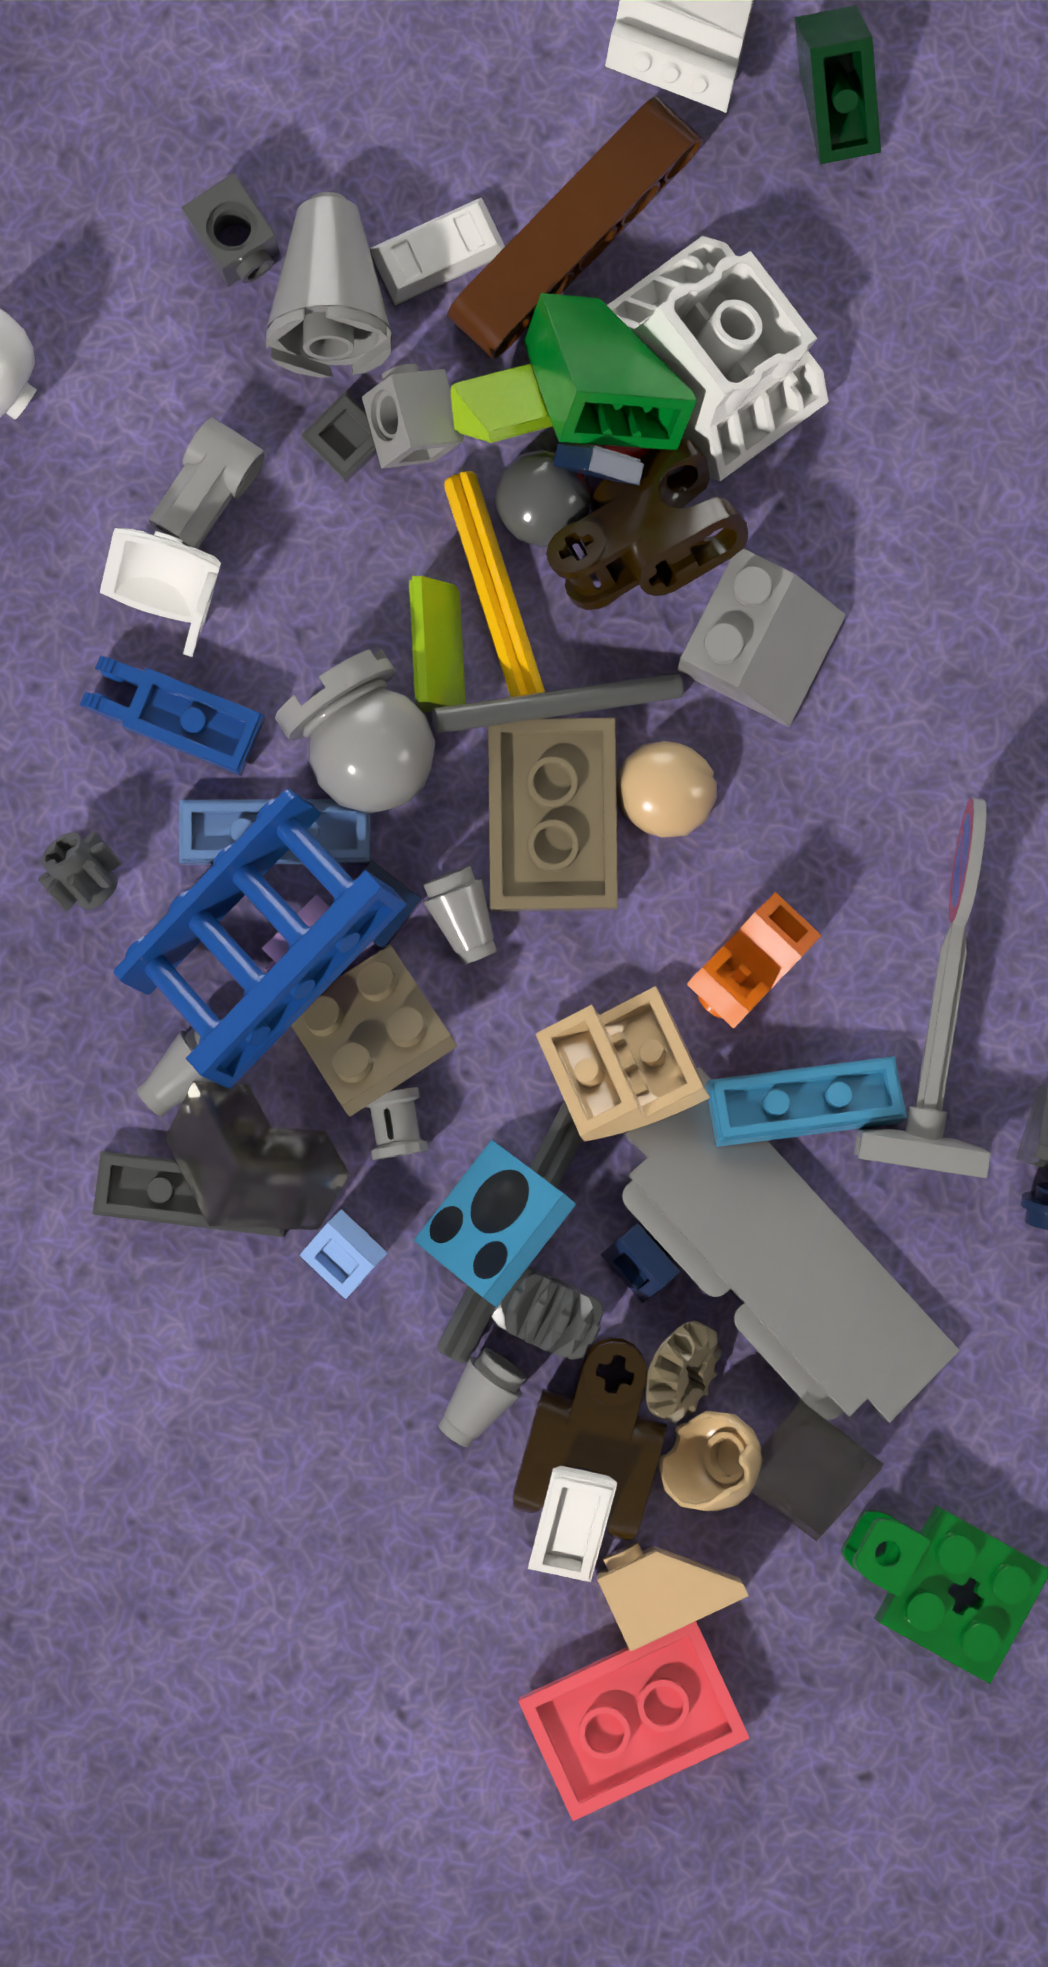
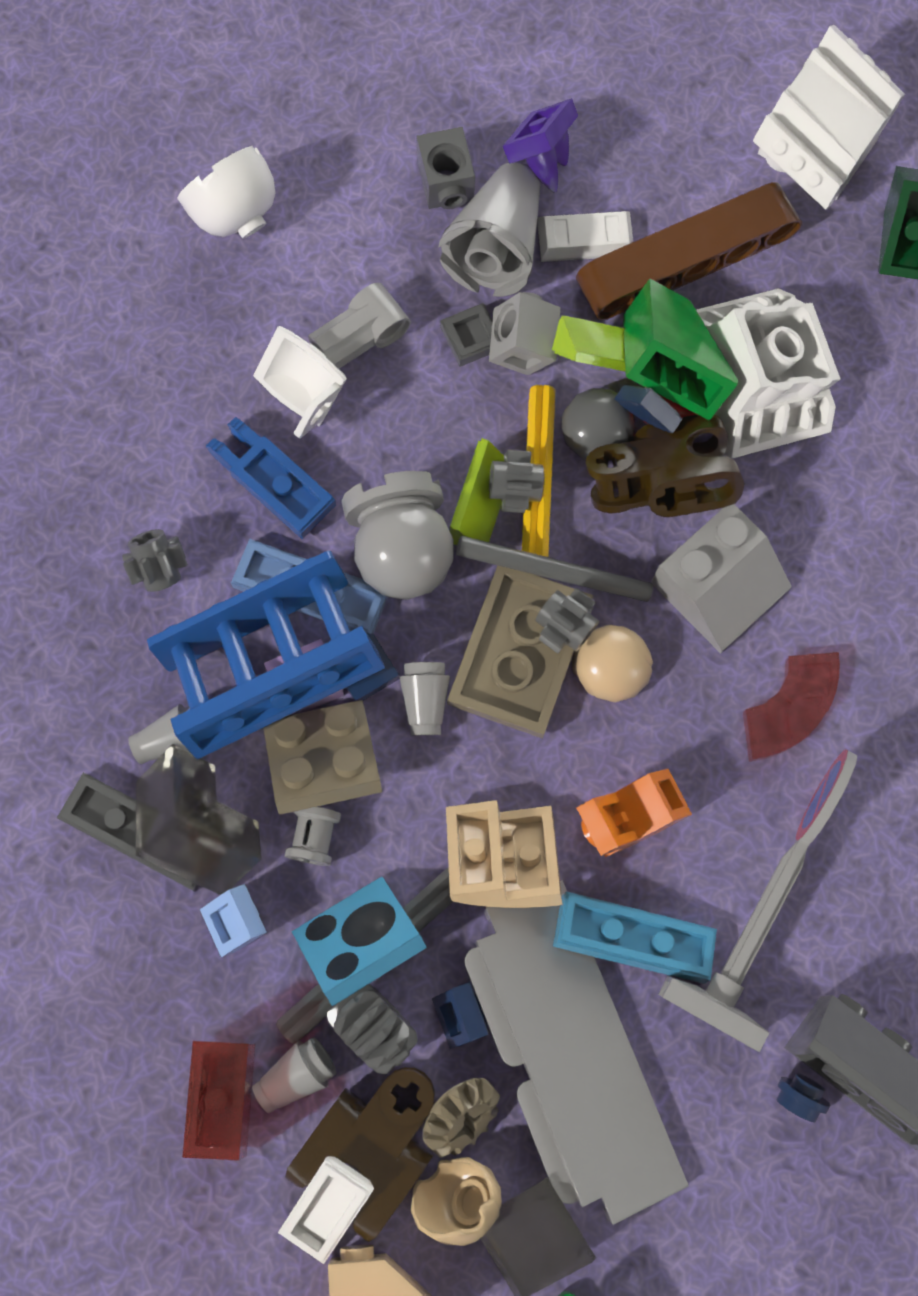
camera: 15 degrees right, 10 degrees down
(337, 147) = (543, 141): none -> dark purple tile
(409, 1453) = (219, 1100): none -> clear red brick
(473, 614) = (516, 481): none -> dark grey gear
(596, 766) = (567, 620): none -> dark grey gear
(900, 760) = (796, 708): none -> clear red tile

